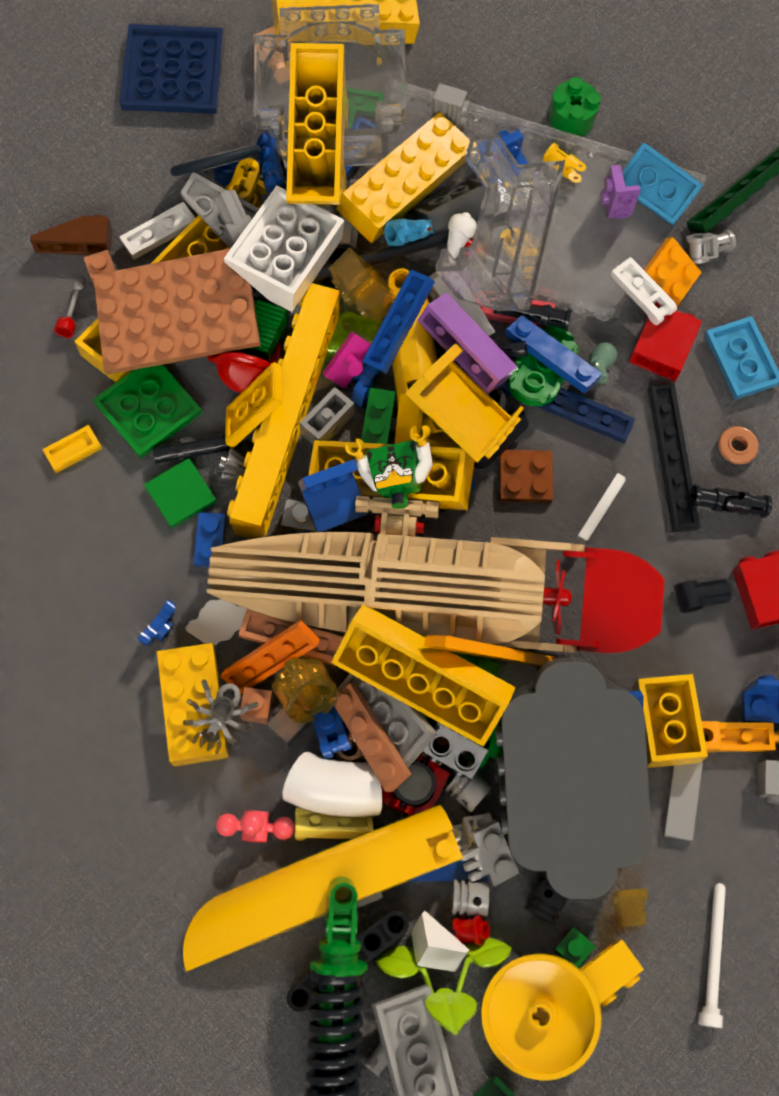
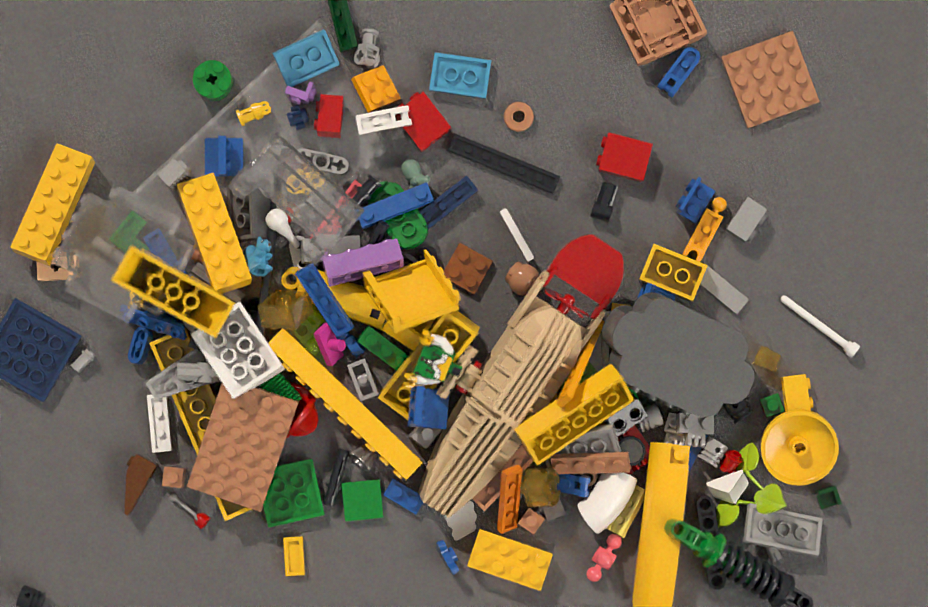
camera: 55 degrees left, 15 degrees up
(189, 124) = (81, 362): none -> light grey pin
(215, 160) = (133, 360): black wedge -> none
(221, 712) = (529, 545): animal -> none
(240, 180) = (159, 352): yellow beam -> none
(253, 404) = (334, 425): yellow tile -> none
(551, 268) = (336, 159): none -> light grey beam
(554, 530) = (521, 278): none -> nougat piece
(588, 207) = (297, 117): none -> dark blue gear
(611, 238) = (329, 116): none -> red brick
(730, 501) = (554, 147): black piece -> none

